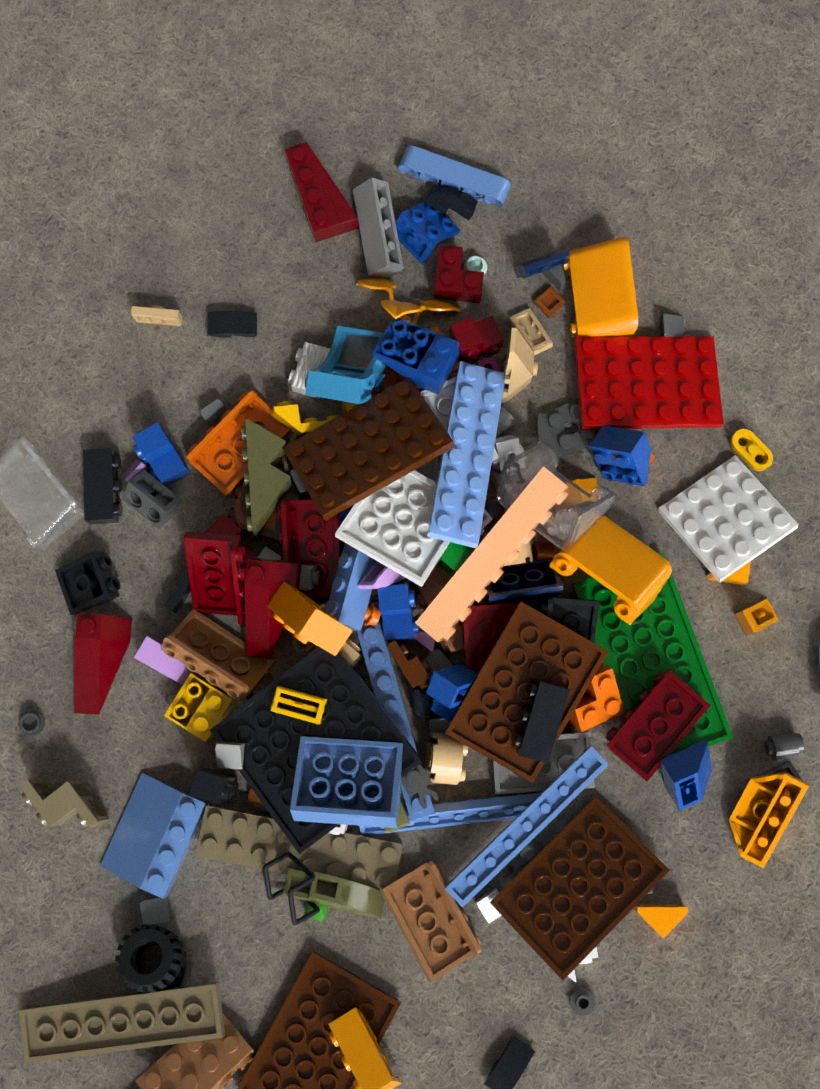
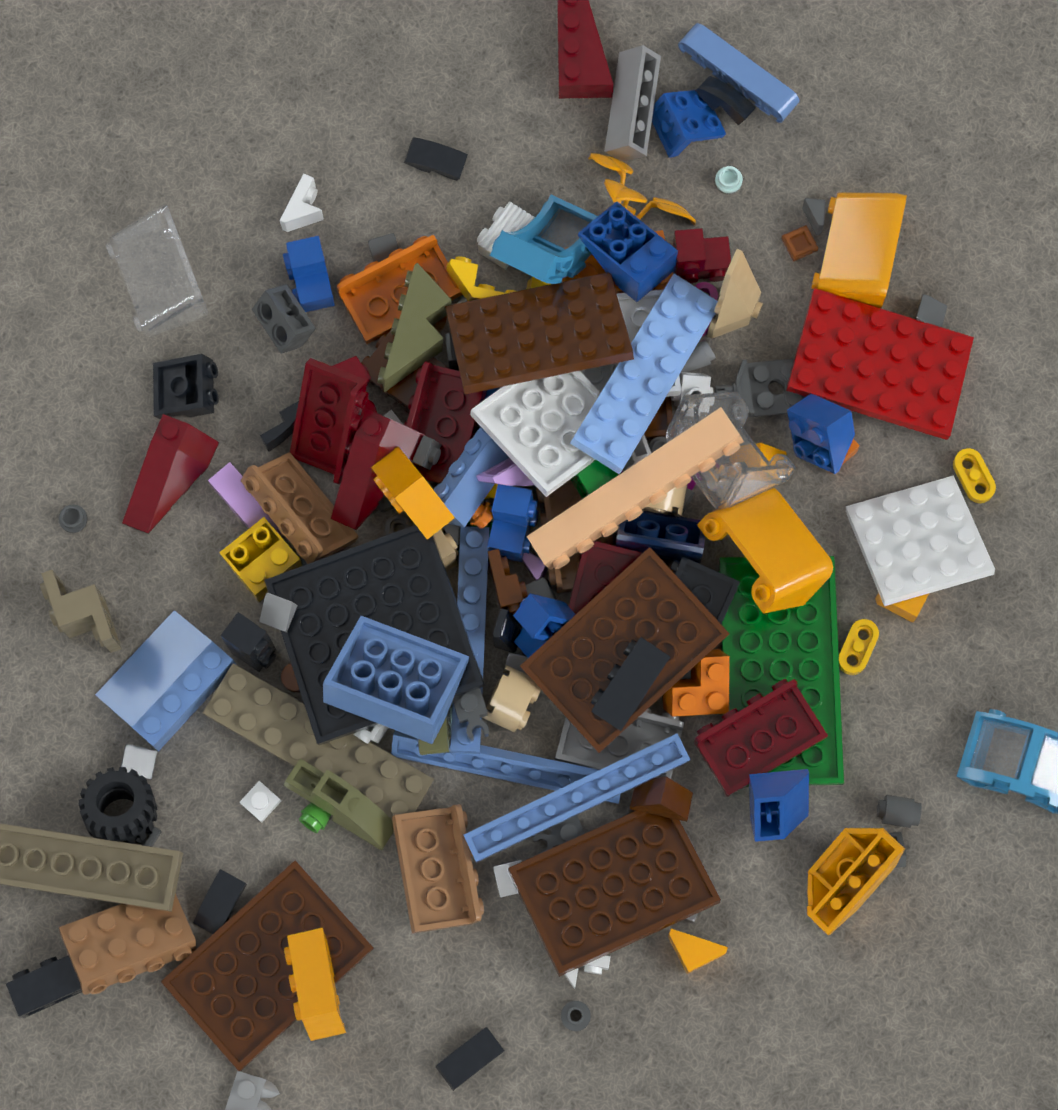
camera: 20 degrees right, 5 degrees down
(101, 486) = (234, 289): black brick -> none
(133, 404) = (299, 211): none -> white slope
(133, 470) = (278, 280): lavender slope -> none
(157, 315) = (356, 124): tan plate -> none
(261, 1007) = (219, 902): none -> black slope
(266, 910) = (260, 801): none -> white plate
(270, 896) = (322, 770): black piece -> none
(319, 710) = (390, 594): yellow tile -> none
(452, 281) = (698, 188): dark red brick -> none
(531, 331) = (767, 268): tan plate -> none
(542, 263) = (803, 197): dark blue slope -> none
(545, 550) = (699, 509): dark orange tile -> none
(595, 800) = (662, 798): none -> reddish brown slope
(707, 621) = (857, 647): none -> yellow plate
(756, 617) = (916, 660): light orange slope -> none

